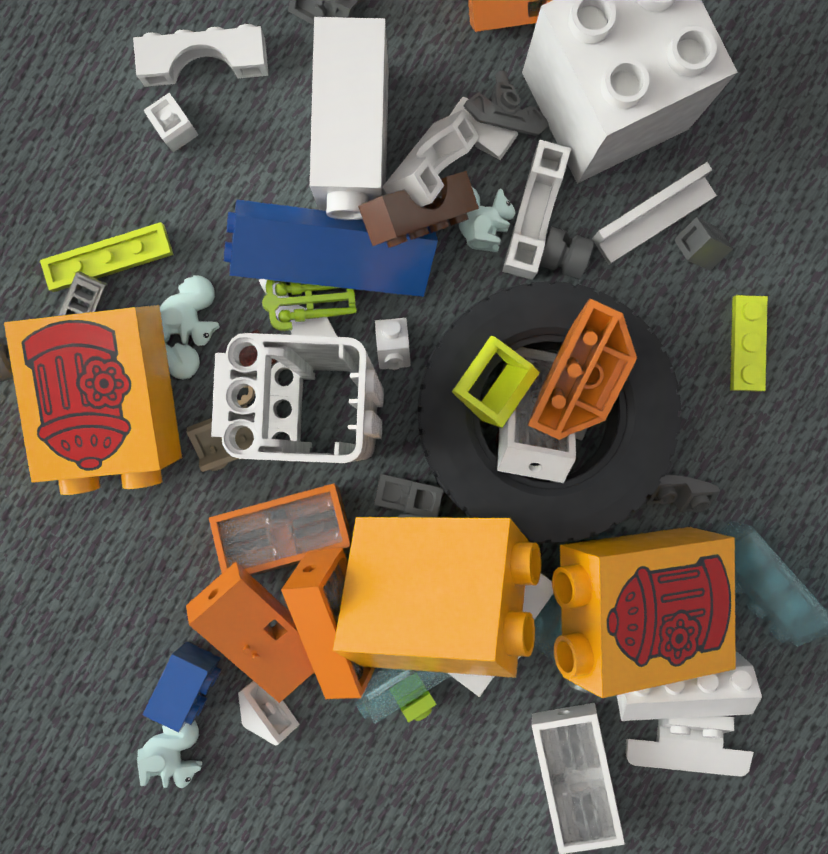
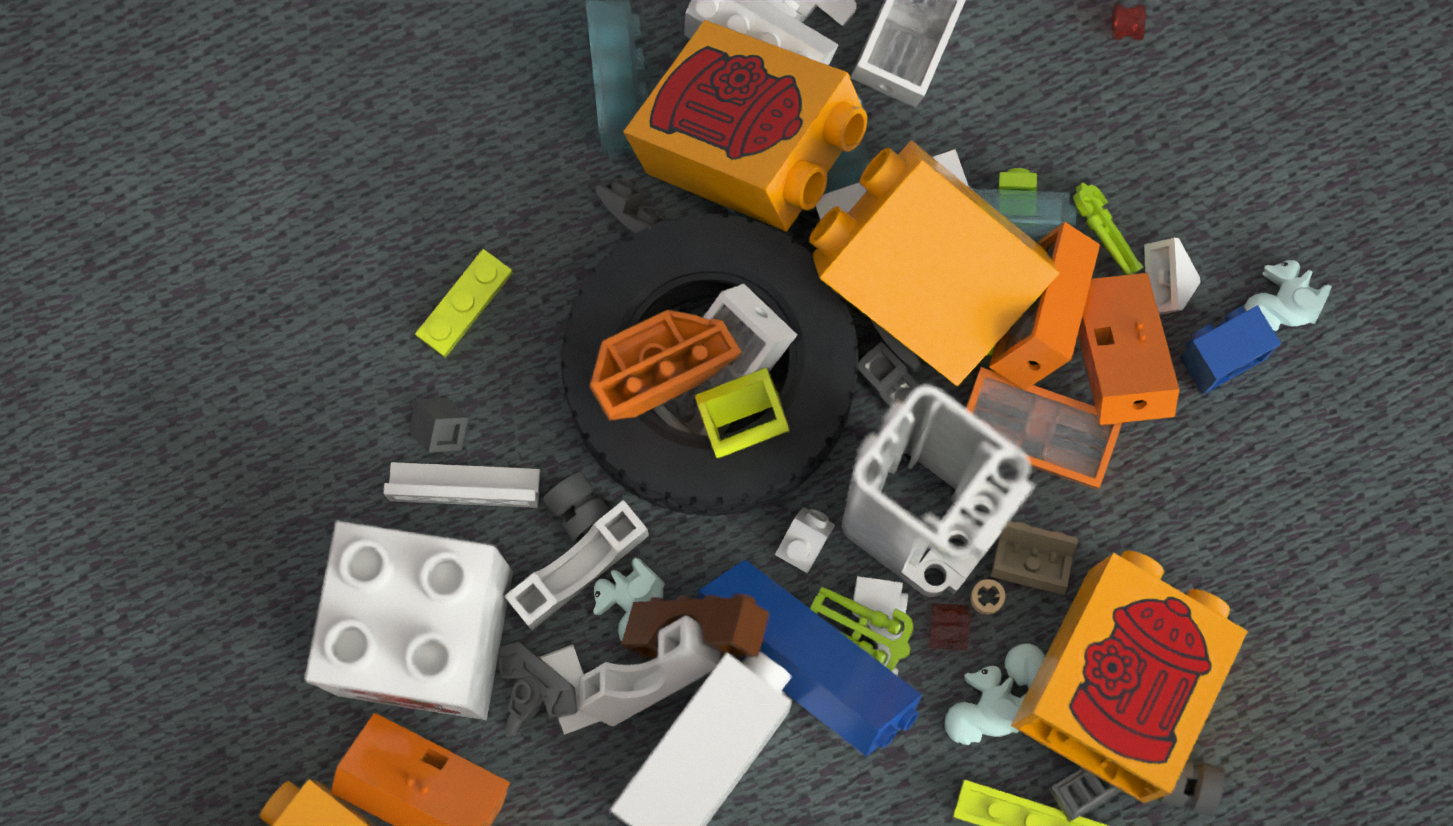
camera: 140 degrees left, 10 degrees down
(340, 718) = (1089, 205): none -> lime piece

